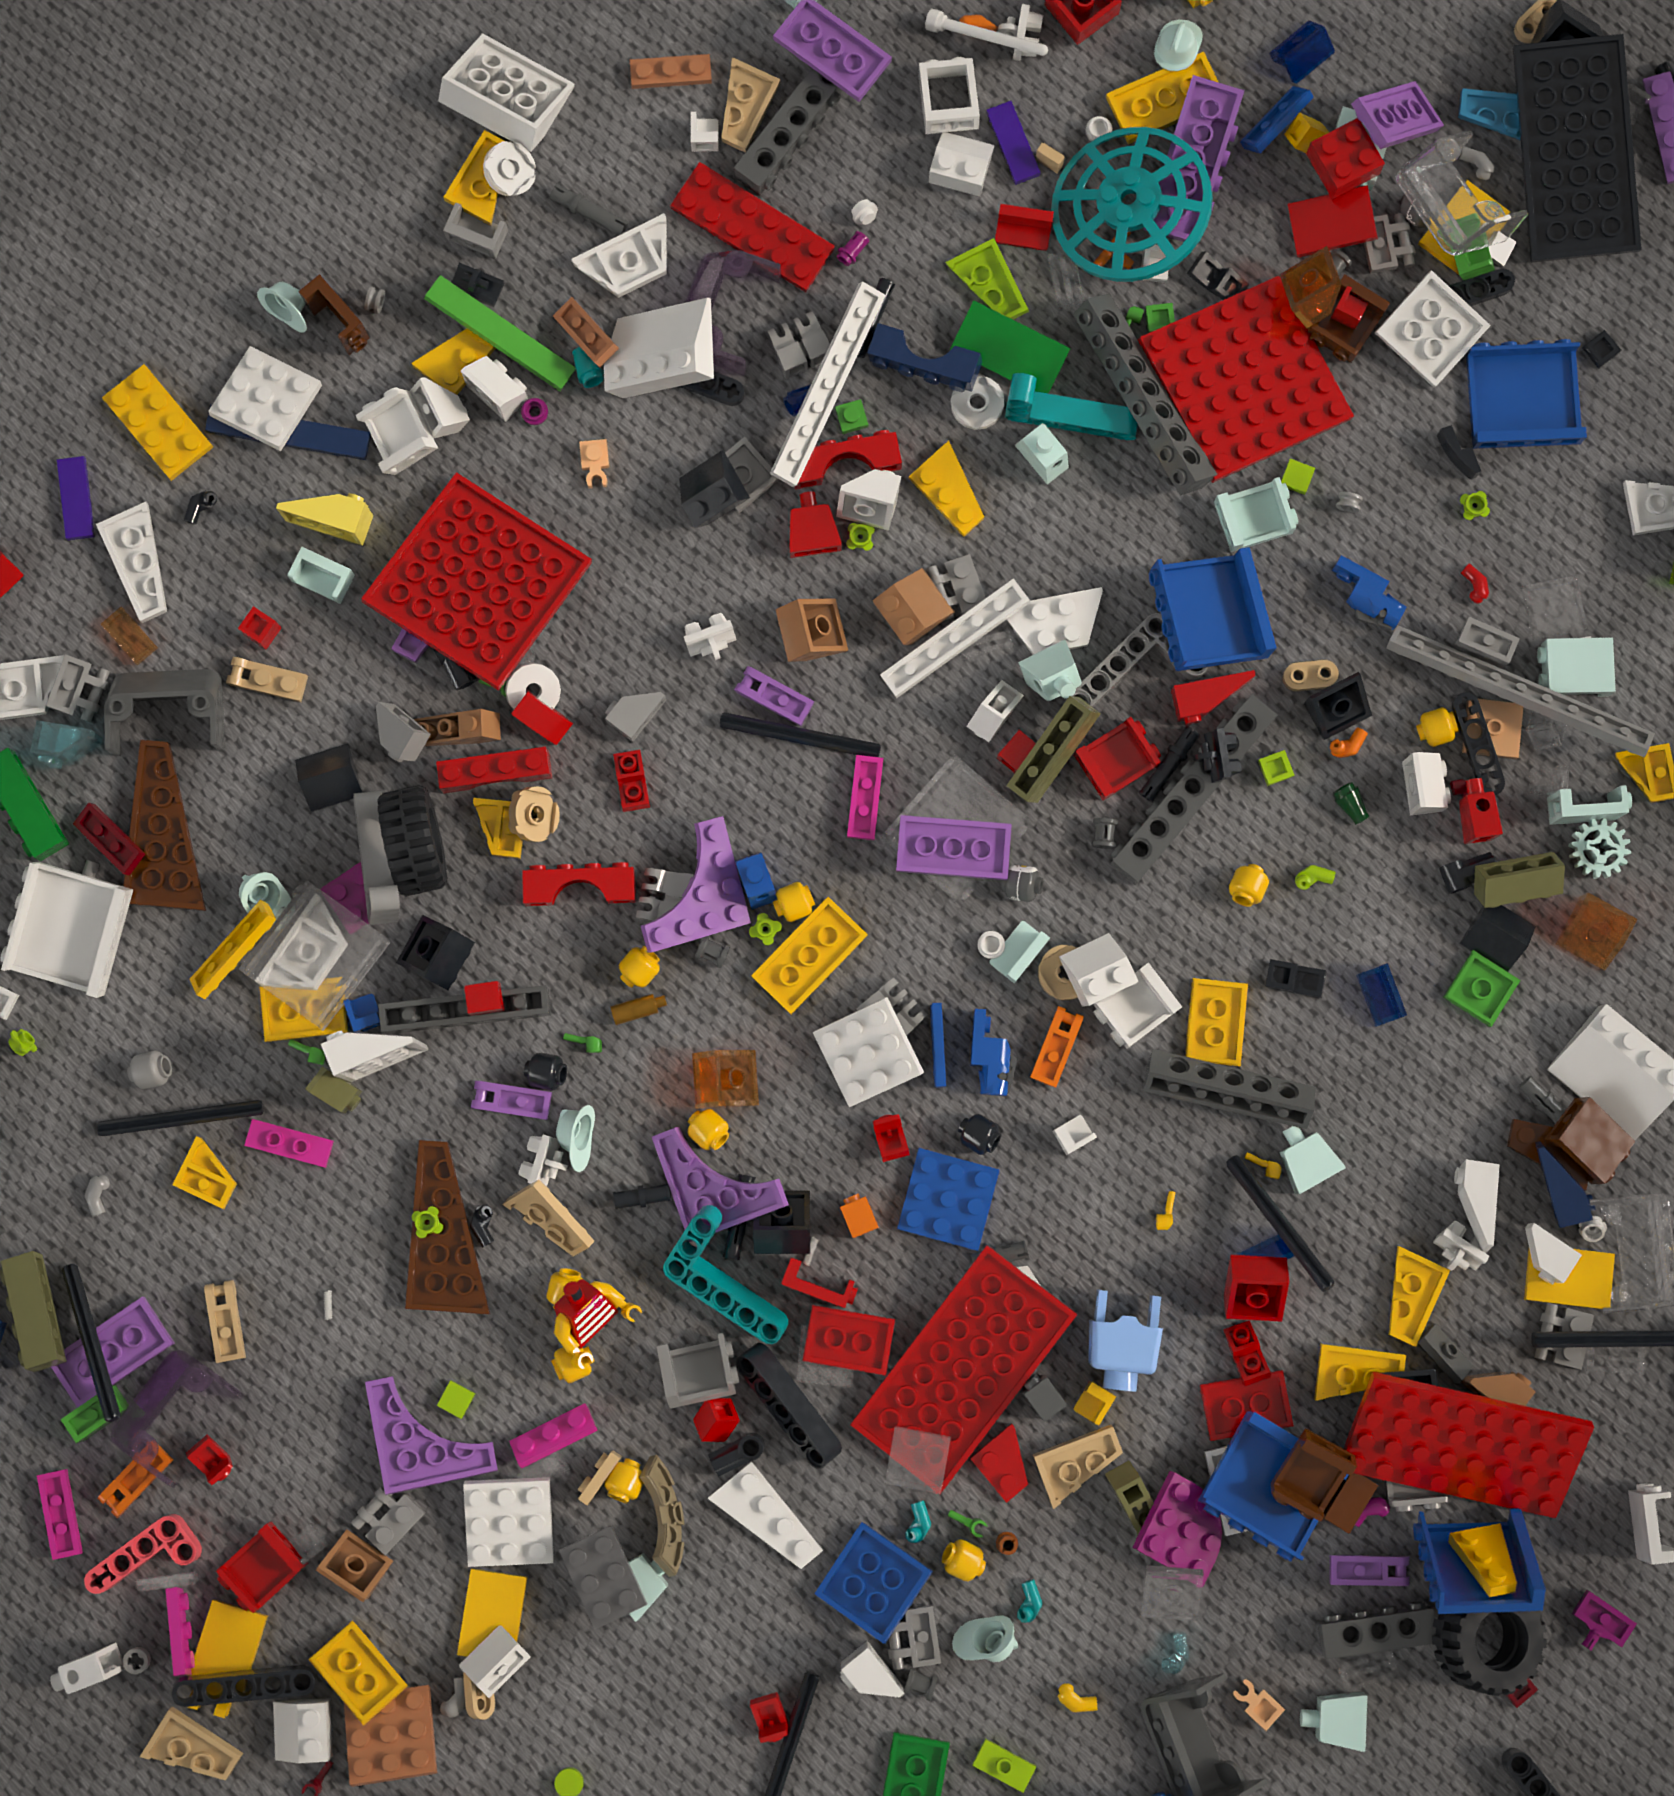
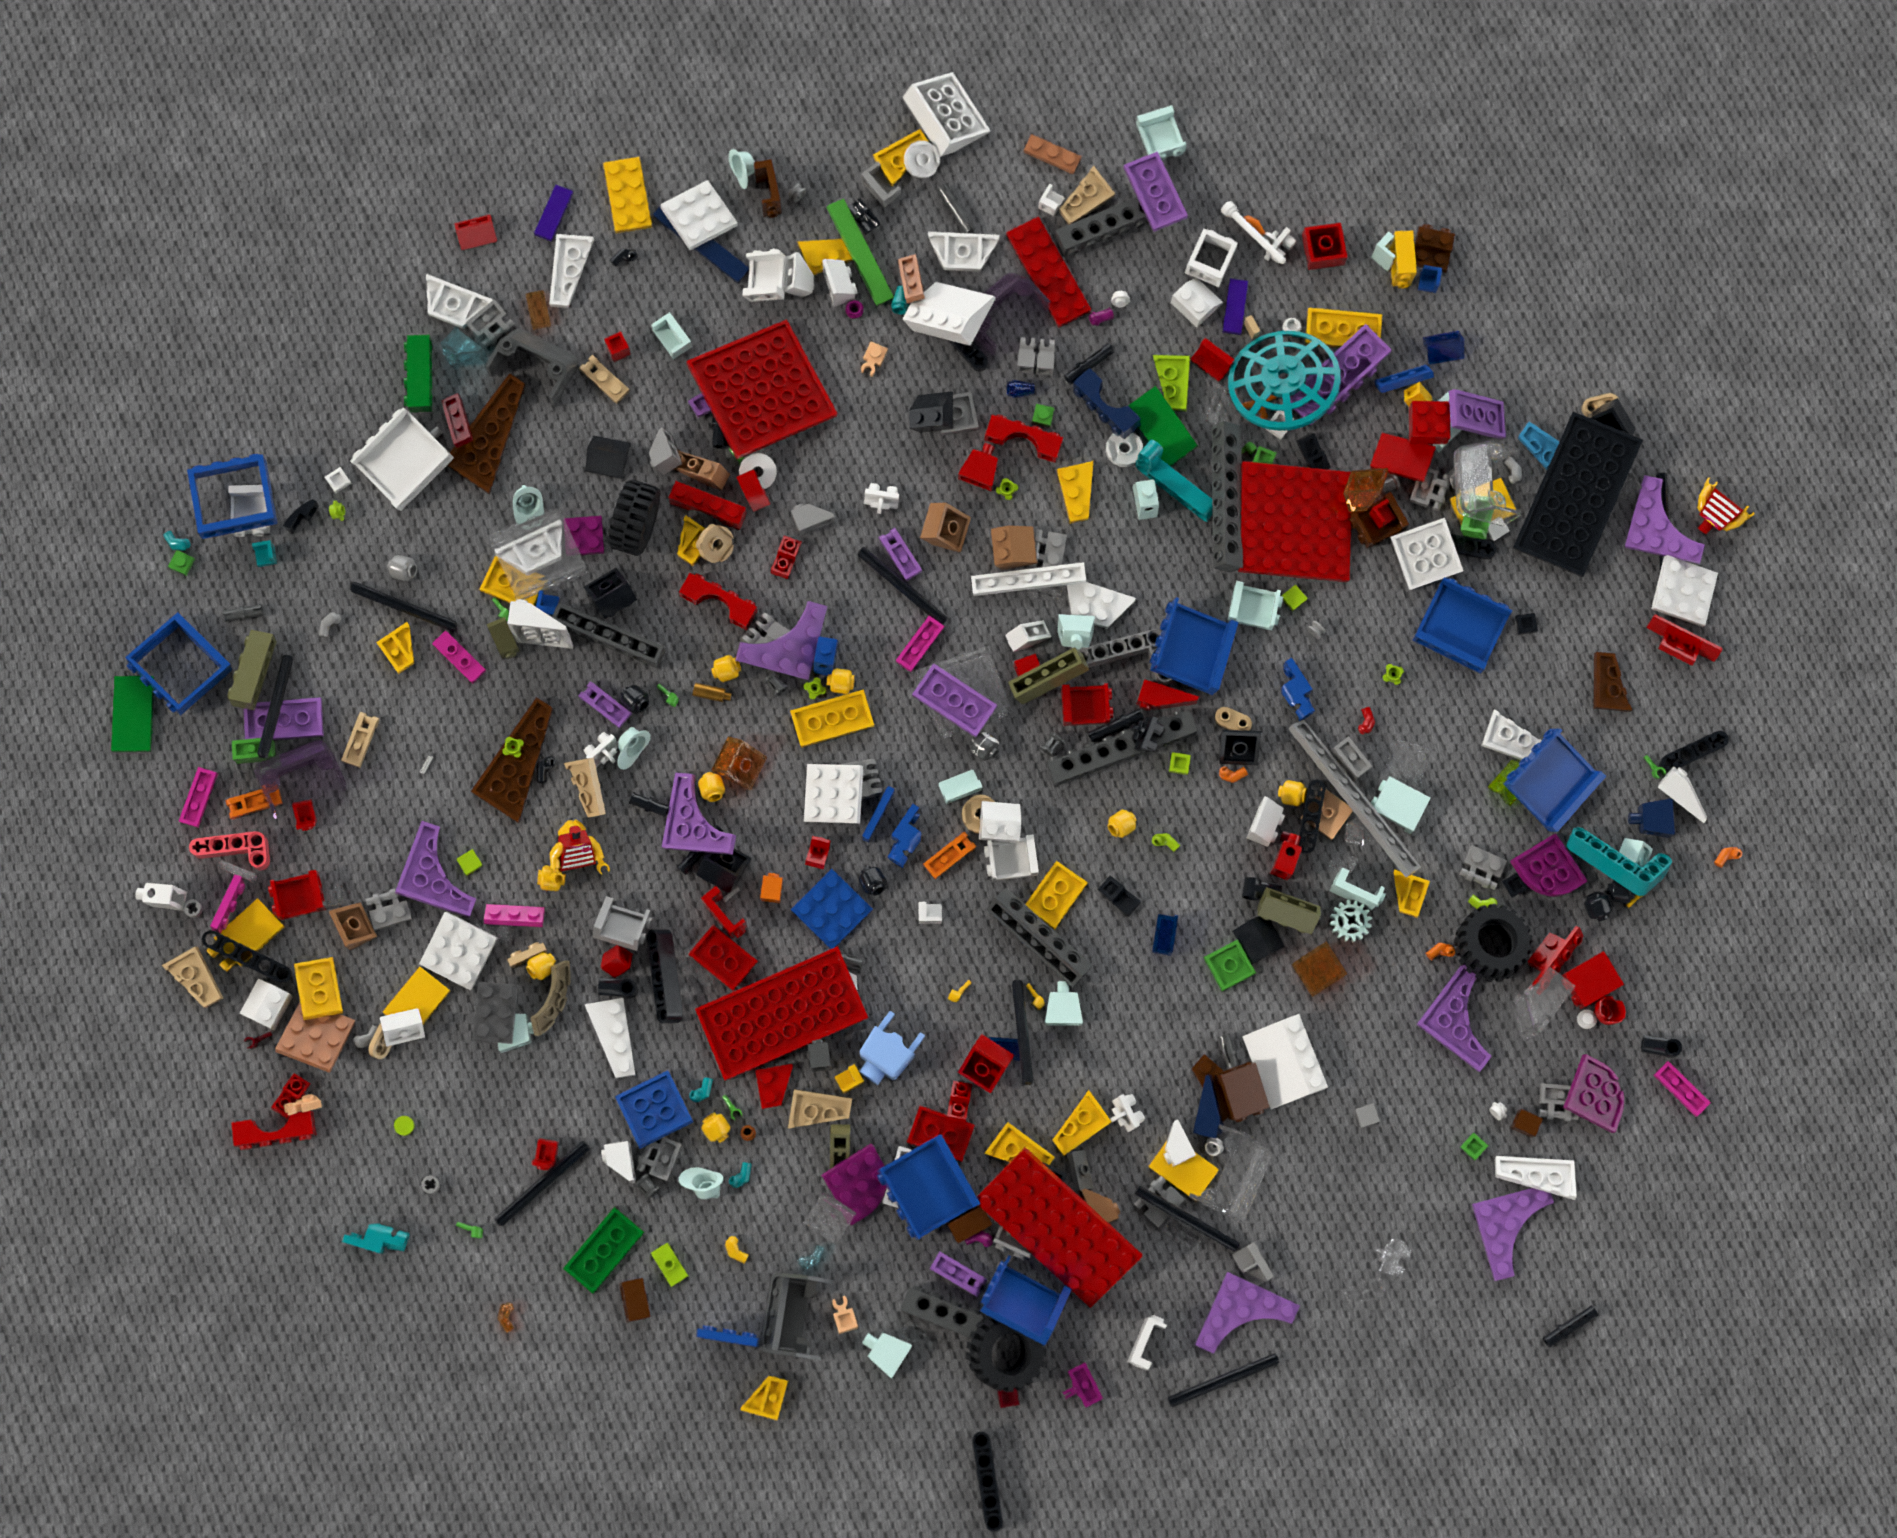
camera: 25 degrees right, 5 degrees down
(232, 949) = (491, 524): yellow plate -> none
(333, 515) = (697, 303): light yellow slope -> none
(380, 892) = (600, 530): light grey beam -> none
(484, 998) = (622, 632): red panel -> none
(720, 1282) = (665, 879): teal beam -> none
(827, 384) = (1037, 386): white plate -> none
(870, 499) = (1024, 468): white slope -> none
(917, 1460) = (722, 1051): clear tile -> none
(991, 944) = (945, 773): white plate -> none
(1178, 45) = (1369, 302): light aqua piece -> none
(1312, 1474) = (954, 1191): reddish brown panel -> none
(1351, 801) = (1214, 809): dark green cone -> none
(1463, 459) = (1401, 641): black slope -> none
(1478, 1195) = (1154, 1085): white slope -> none
(1486, 1557) = (1031, 1300): yellow wing -> none

